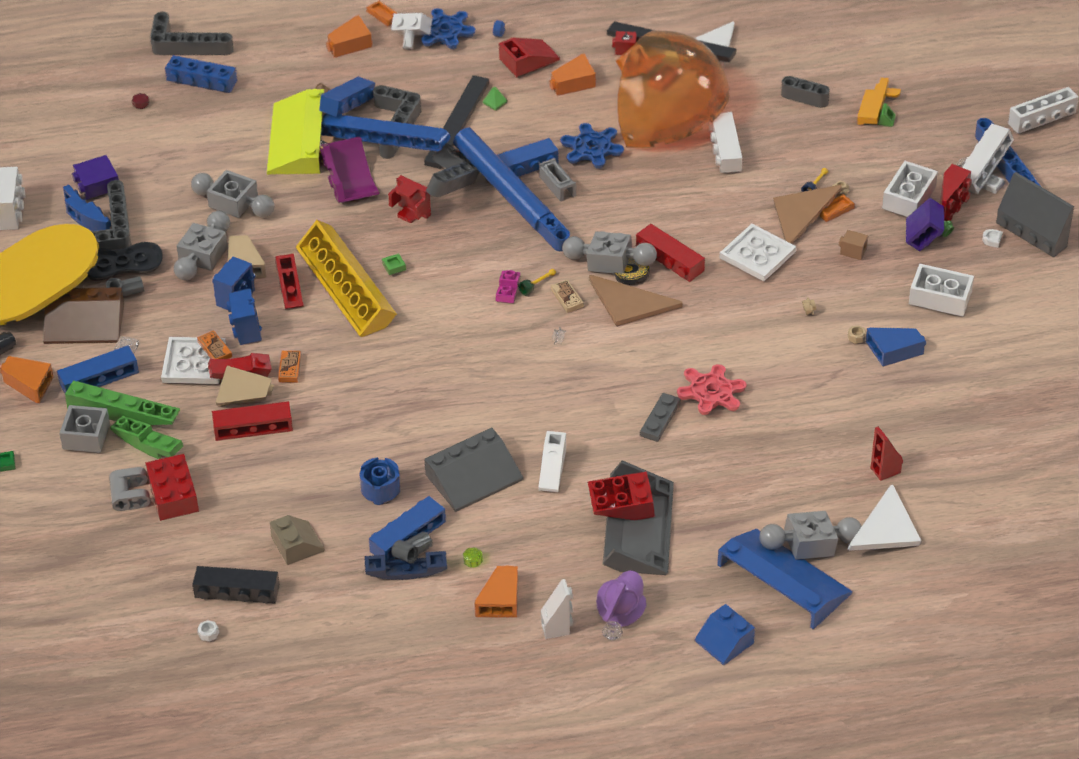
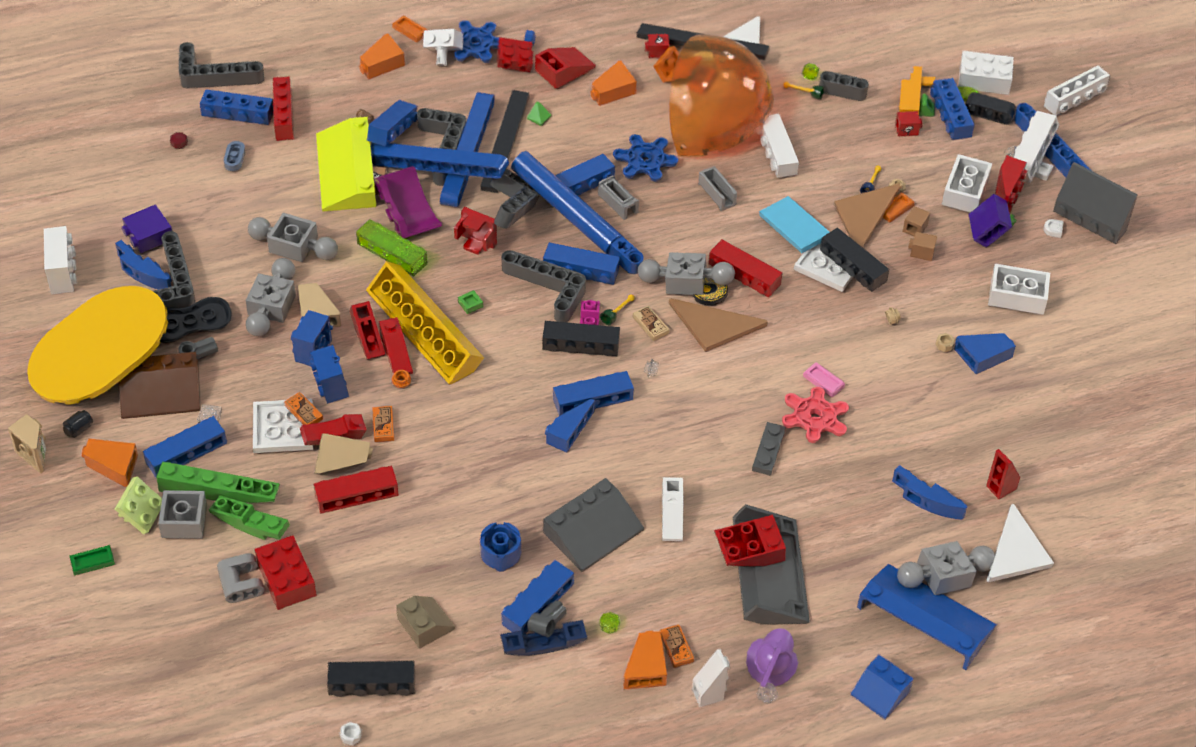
camera: 10 degrees left, 5 degrees up
(45, 417) = (139, 505): none -> yellowish green plate
(190, 118) = (234, 156): none -> sand blue plate
(245, 78) = (282, 108): none -> red brick
(313, 298) = (395, 345): none -> red slope
(314, 327) = (401, 375): none -> orange plate
(327, 209) = (391, 247): none -> clear neon green brick
(424, 115) = (469, 141): none -> blue beam
(468, 381) = (568, 426): none -> blue slope
(481, 42) = (514, 54): none -> red plate
(492, 254) = (567, 282): none -> dark grey beam
(495, 304) = (581, 338): none -> black brick
(496, 354) = (603, 389): none -> blue brick
(508, 237) = (591, 264): none -> blue brick
(533, 583) = (676, 646): none -> tile
(655, 167) = (712, 178): none -> light grey window
(728, 216) = (794, 224): none -> medium azure tile
(729, 359) = (823, 378): none -> bright pink tile
(774, 76) = (810, 71): none -> clear neon green tile
(777, 95) = (816, 91): none -> hinge
(779, 250) = (854, 259): none -> black brick
(812, 474) = (932, 499): none -> blue slope
(851, 220) = (916, 221): none -> medium nougat brick
(863, 130) = (908, 123): none -> red brick
(912, 120) = (952, 109): none -> blue brick
(930, 106) = (965, 91): none -> clear neon green tile
(950, 121) = (990, 108): none -> black beam
(953, 88) = (986, 72): none -> white brick

